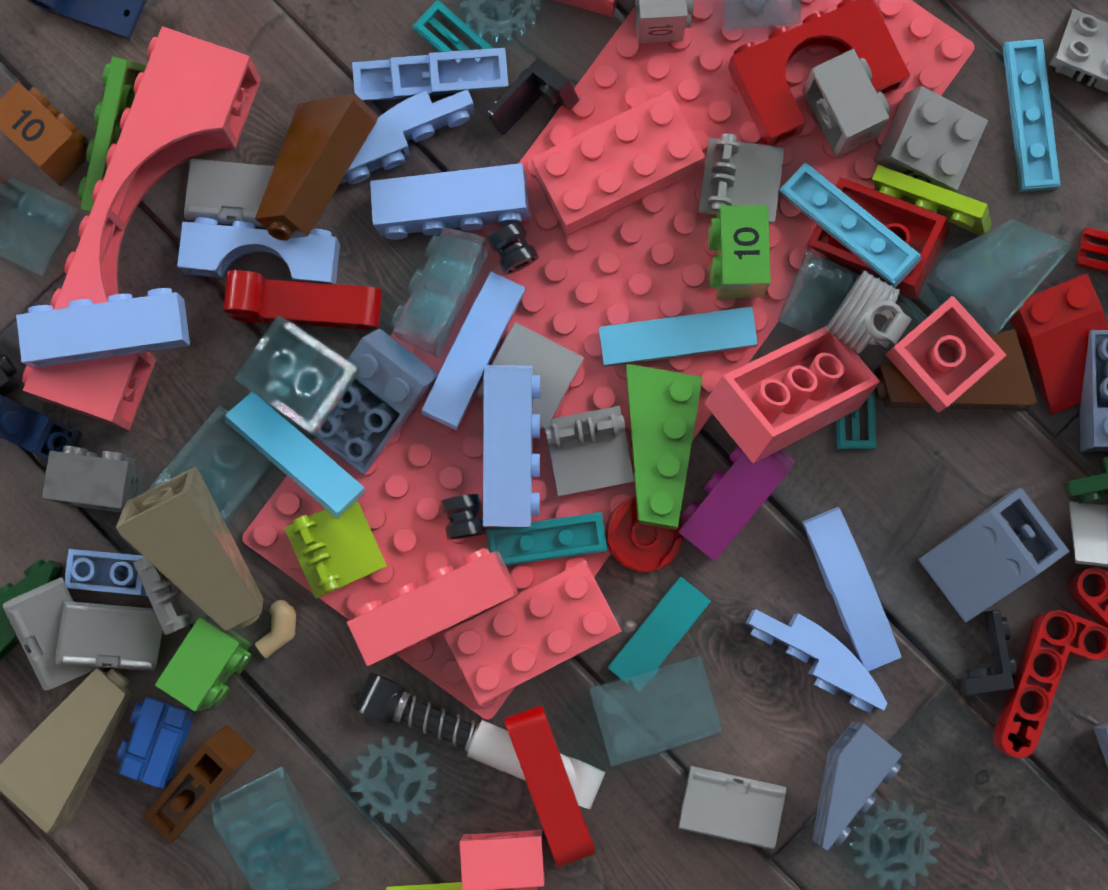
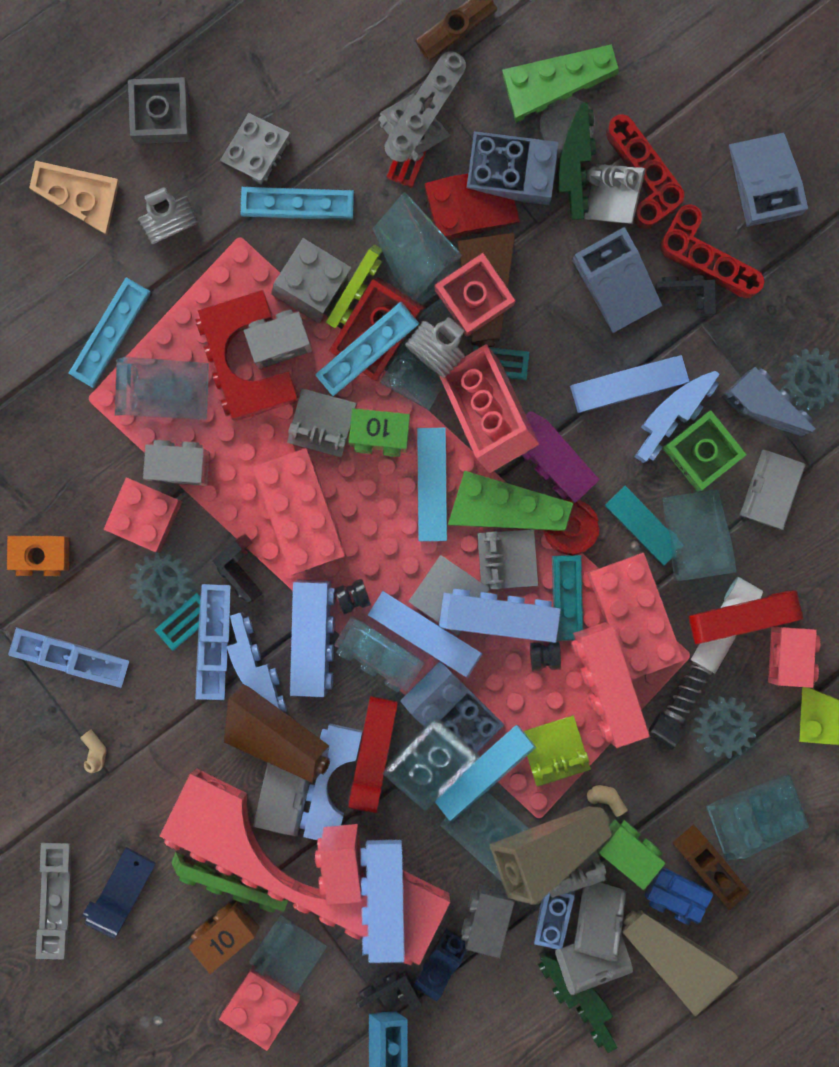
camera: 85 degrees left, 5 degrees up
(148, 264) = (340, 864): none -> coral brick
(773, 702) = (704, 451): none -> bright green brick

